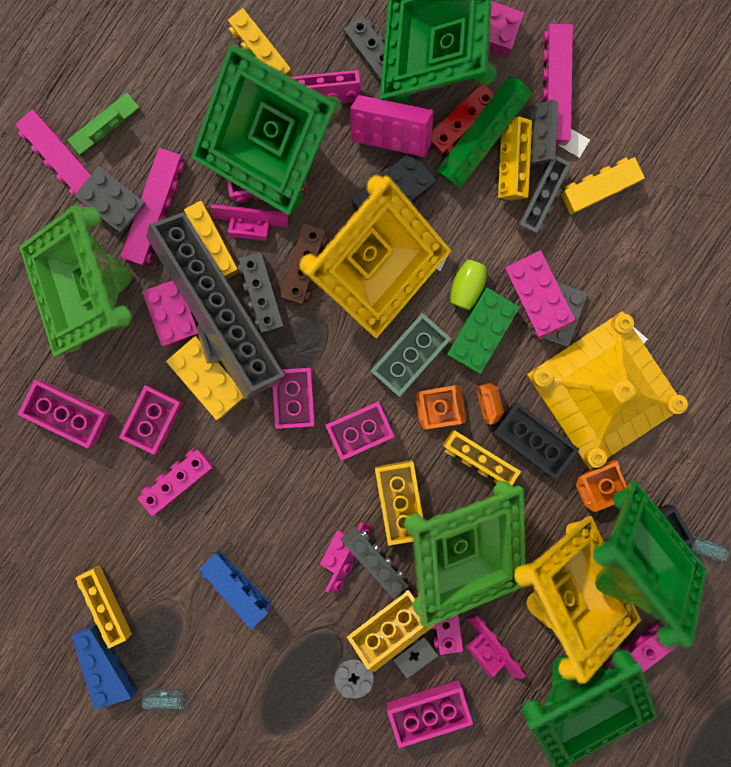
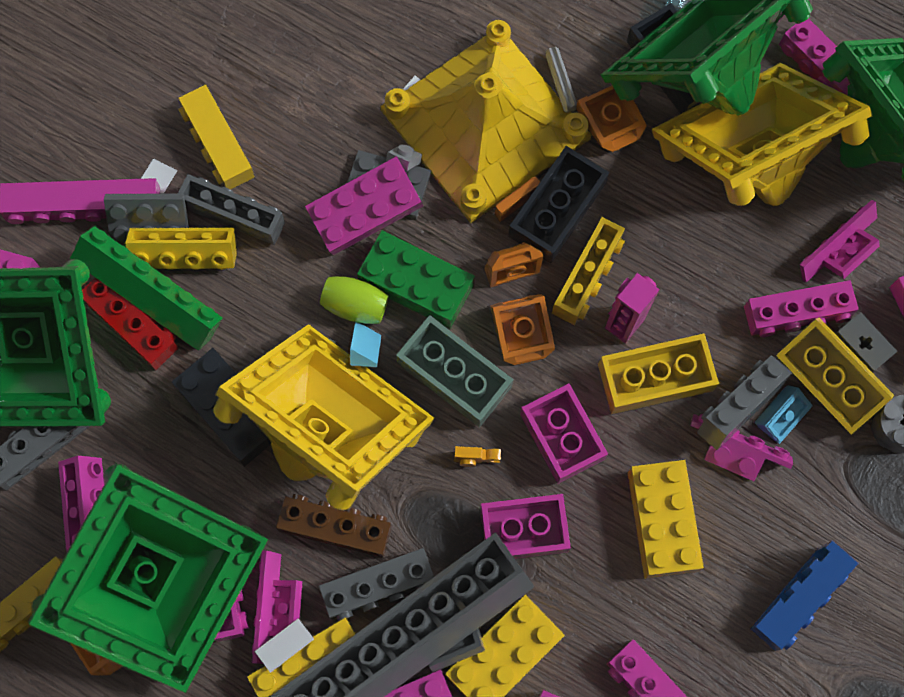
camera: 90 degrees left, 15 degrees down
(220, 226) = (284, 645): none -> white sticker
(294, 497) = (665, 519): none -> yellow brick
(347, 362) = (471, 455): none -> light orange plate
(368, 590) = (783, 413): none -> medium azure slope
(391, 125) = (138, 409): dark pink brick -> none
(432, 291) = (364, 346): none -> medium azure slope
(447, 487) = (631, 306): none -> dark pink brick
(468, 554) = (720, 270): bright green piece -> none
(541, 410) = (516, 199): none -> orange tile
(580, 327) = (406, 156): none -> light grey plate
(637, 450) = (561, 79): none -> light grey axle

